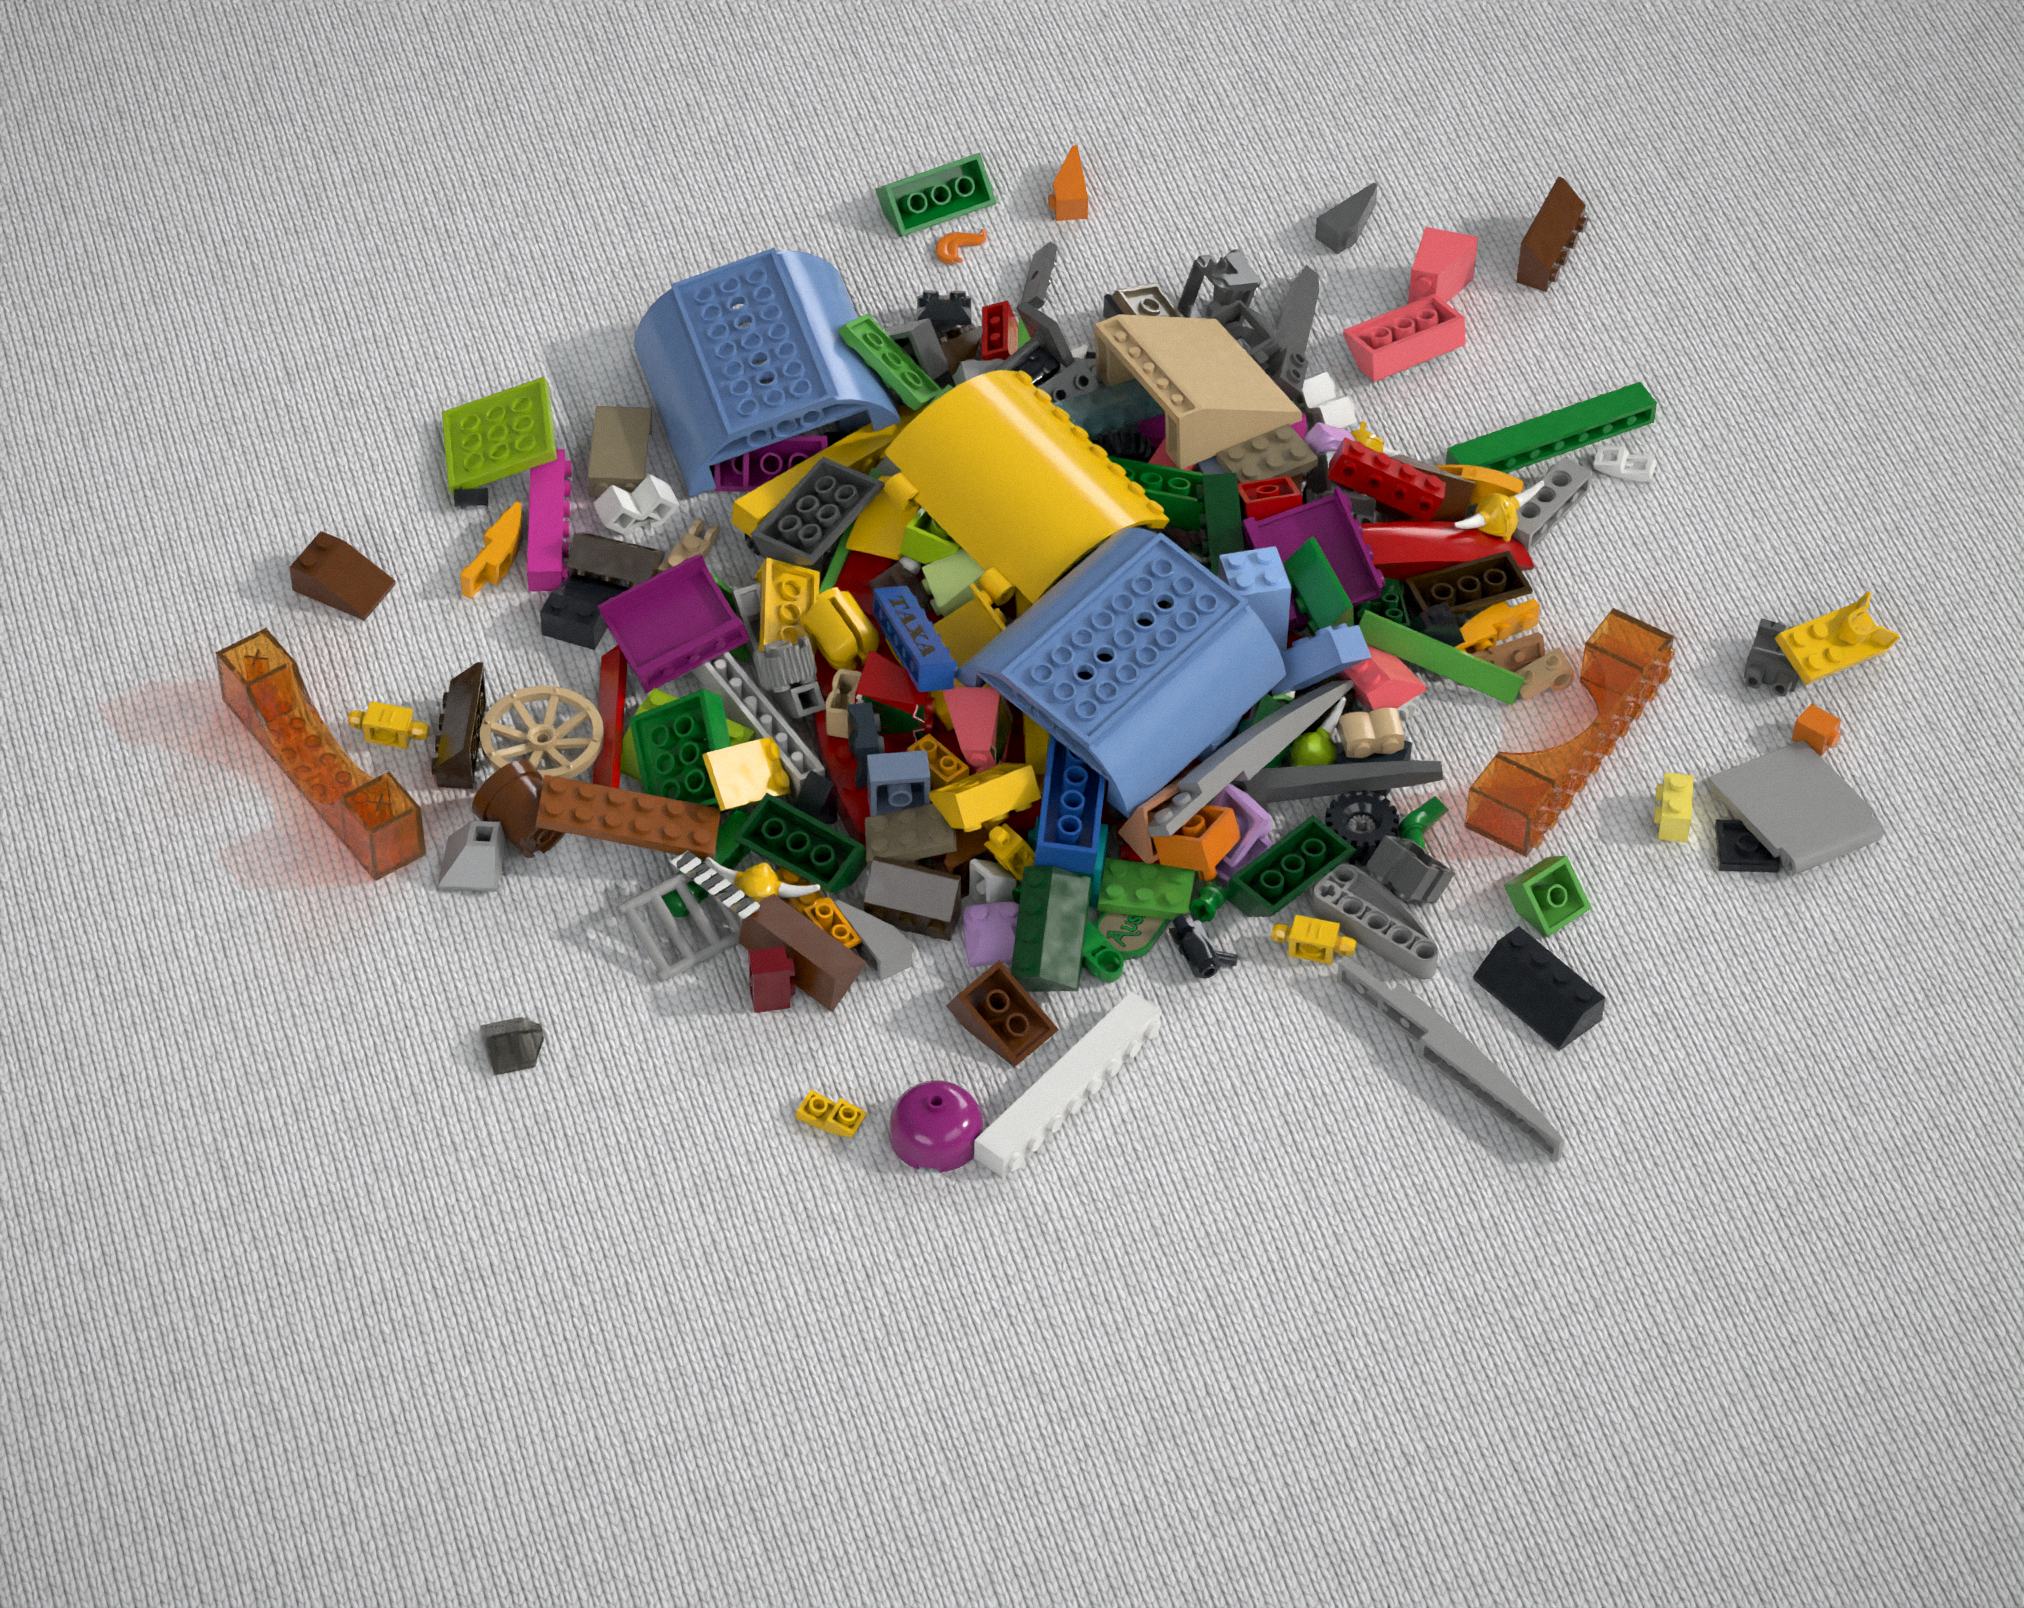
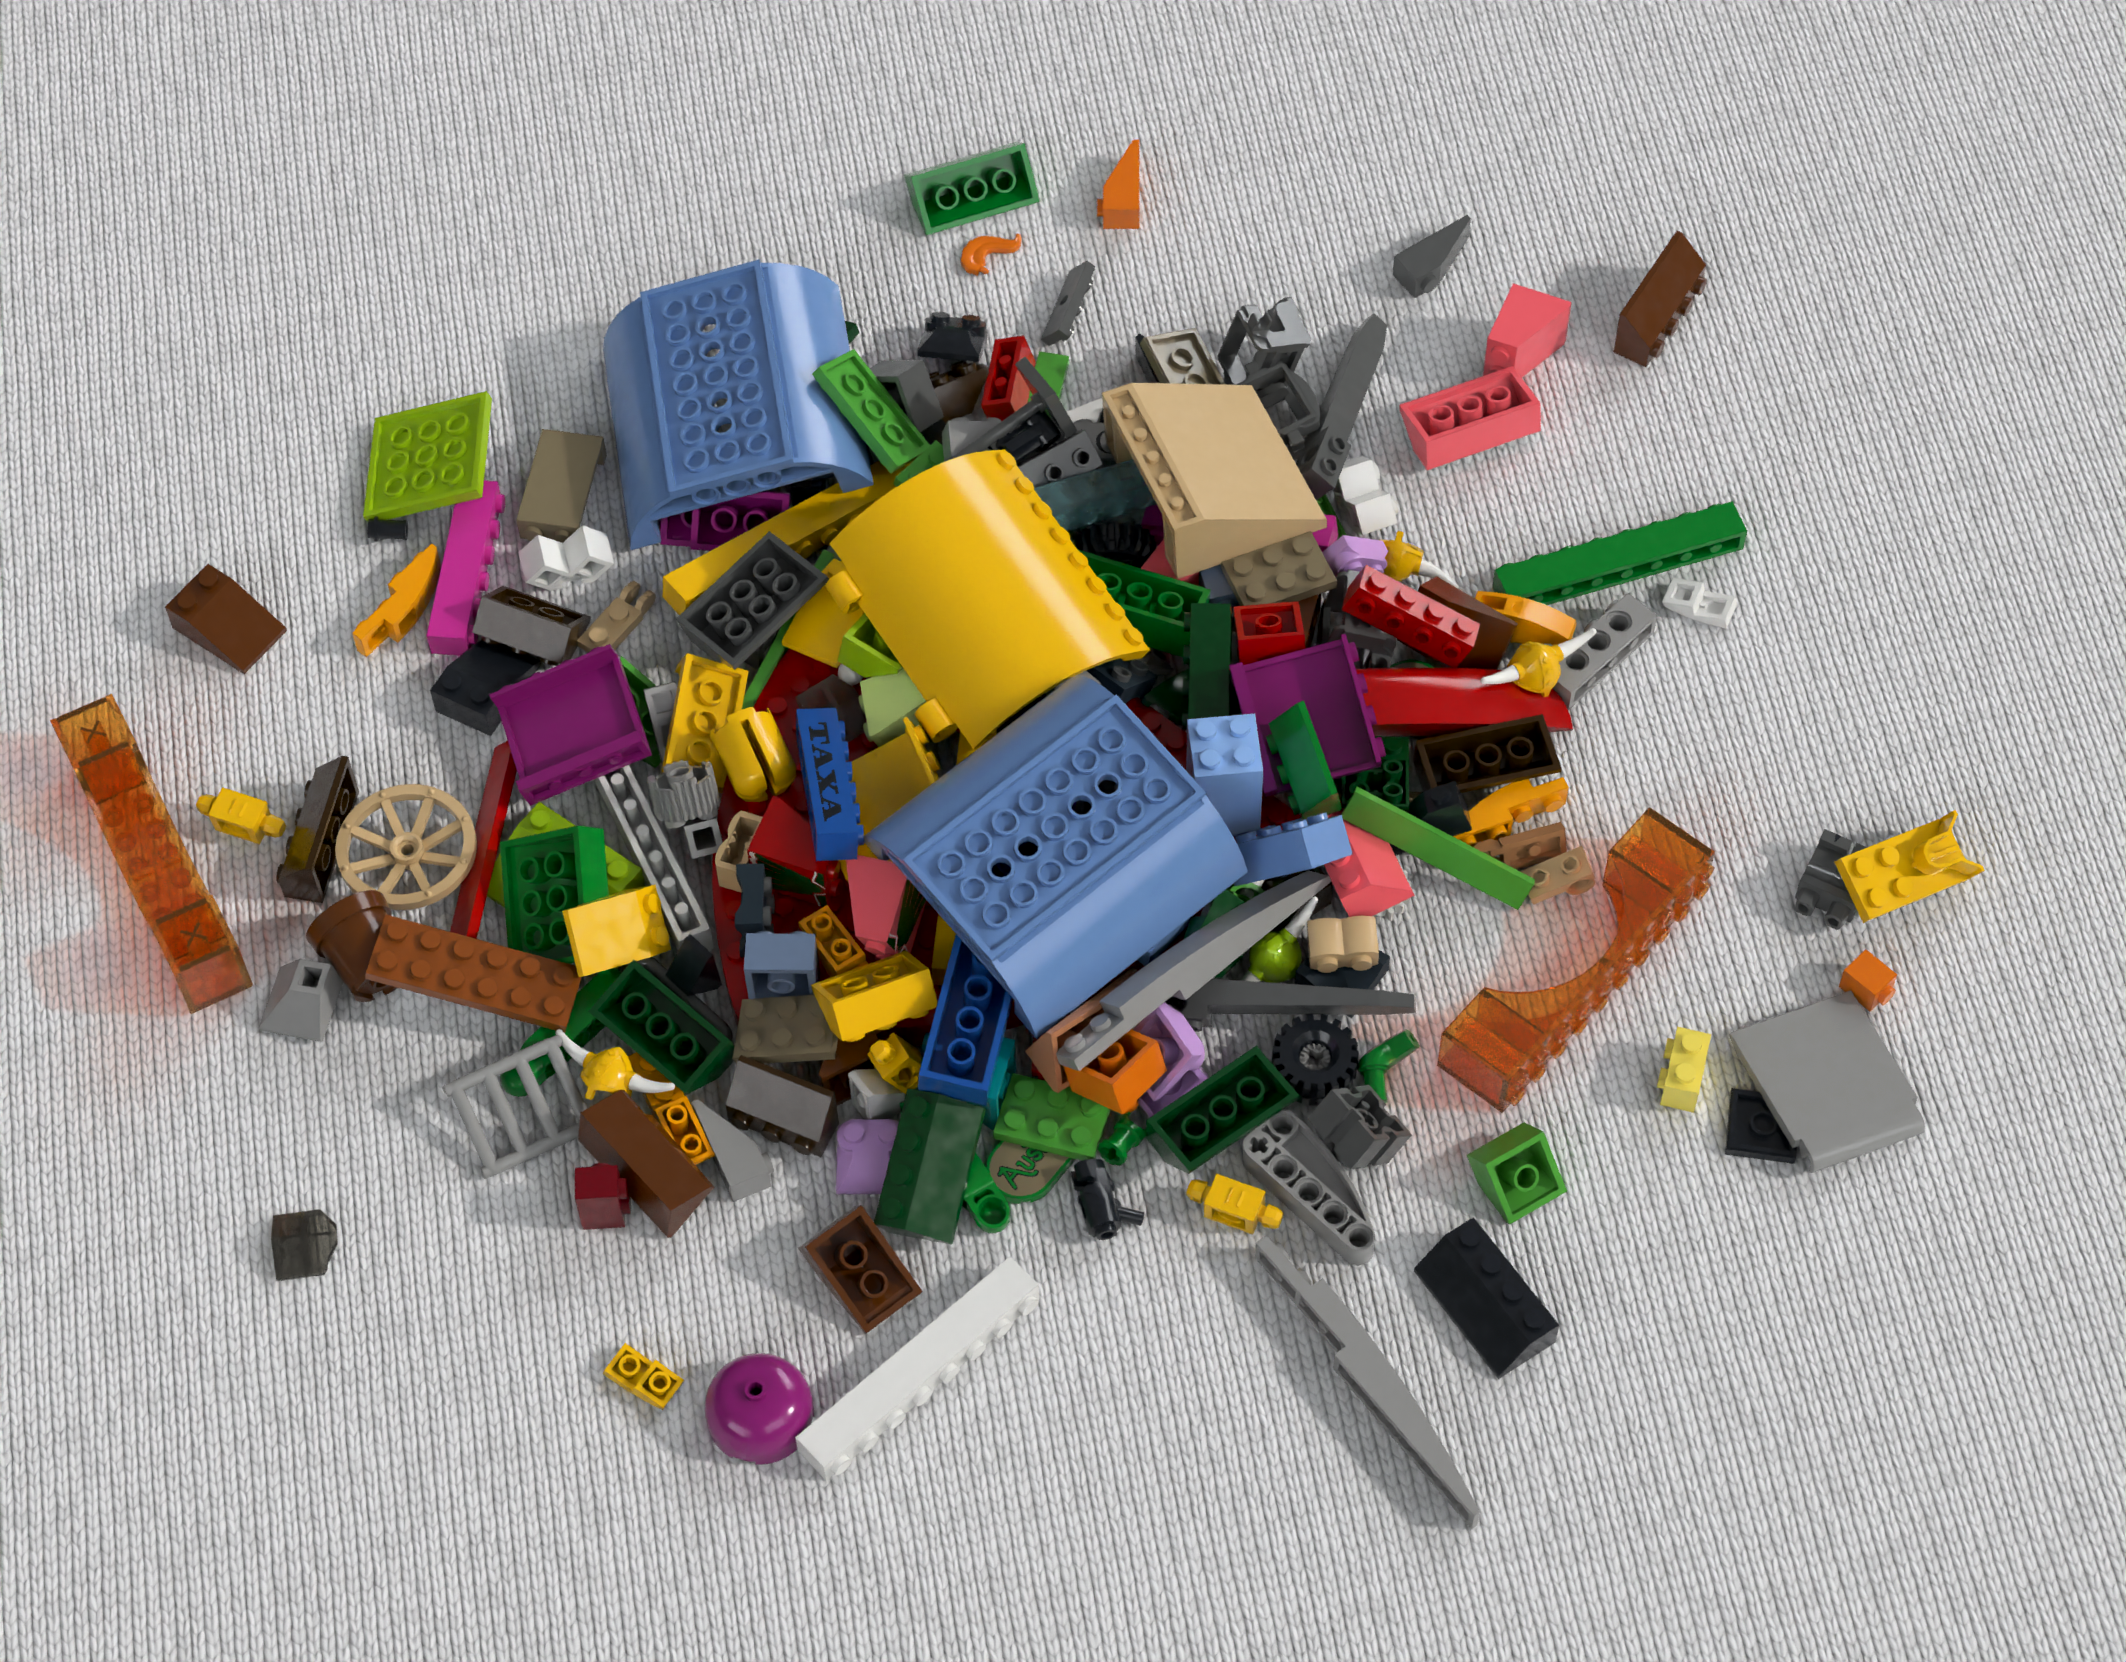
camera: 10 degrees right, 10 degrees up
(716, 884) = (557, 1072): sticker -> none

